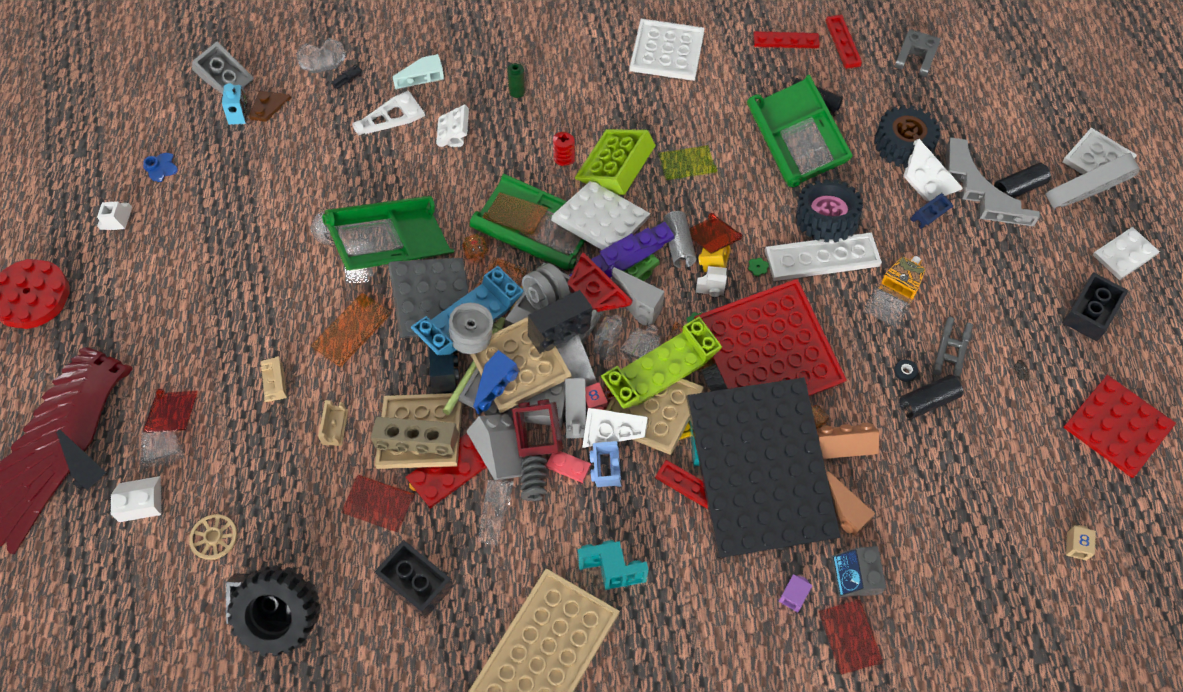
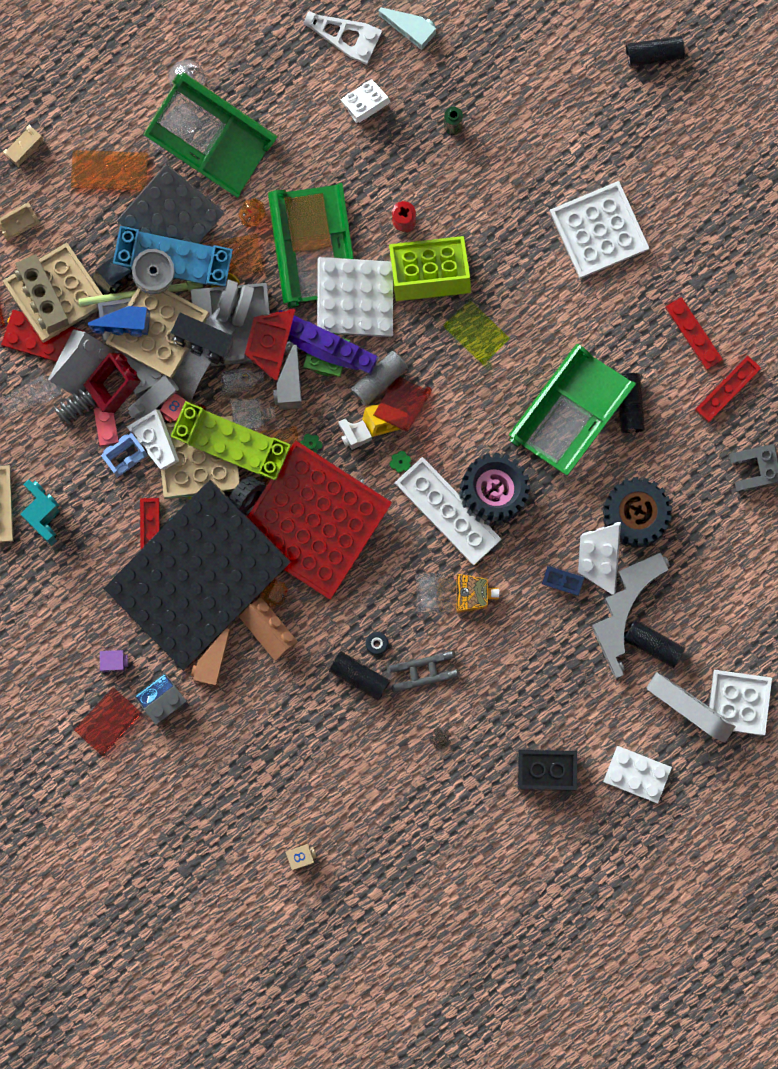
camera: 60 degrees right, 20 degrees up
(1119, 426) = (439, 844): red plate -> none

